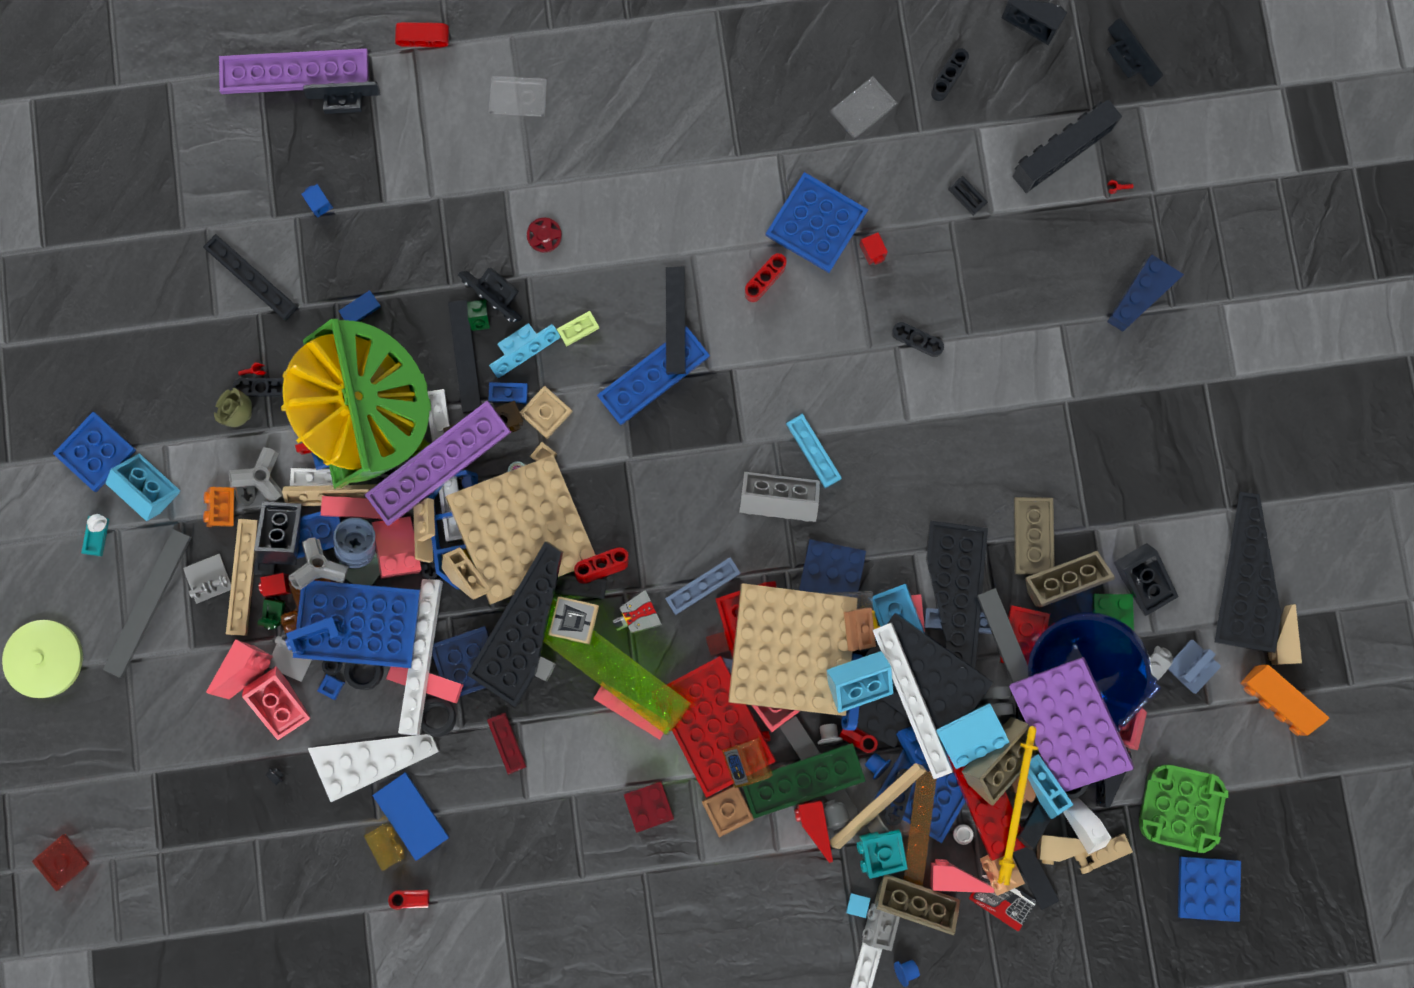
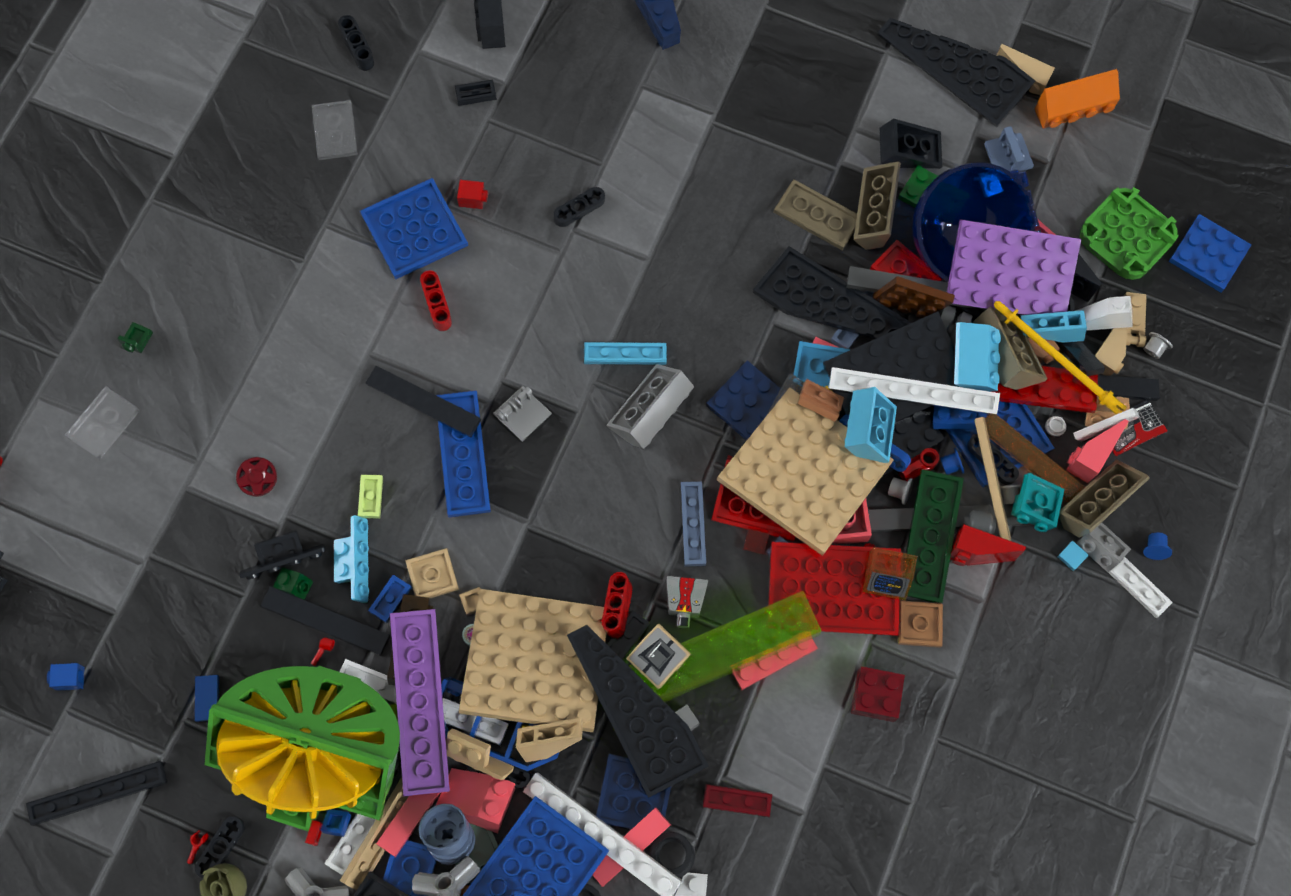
camera: 65 degrees left, 10 degrees down
(447, 367) = (325, 644): none -> red hand
(596, 75) = (135, 338): none -> dark green bracket
(714, 401) = (522, 413): none -> light grey hinge
(984, 876) = (1104, 425): none -> white tile
(995, 655) = (913, 297): none -> reddish brown plate
(1088, 884) = (1157, 345): none -> light grey piece

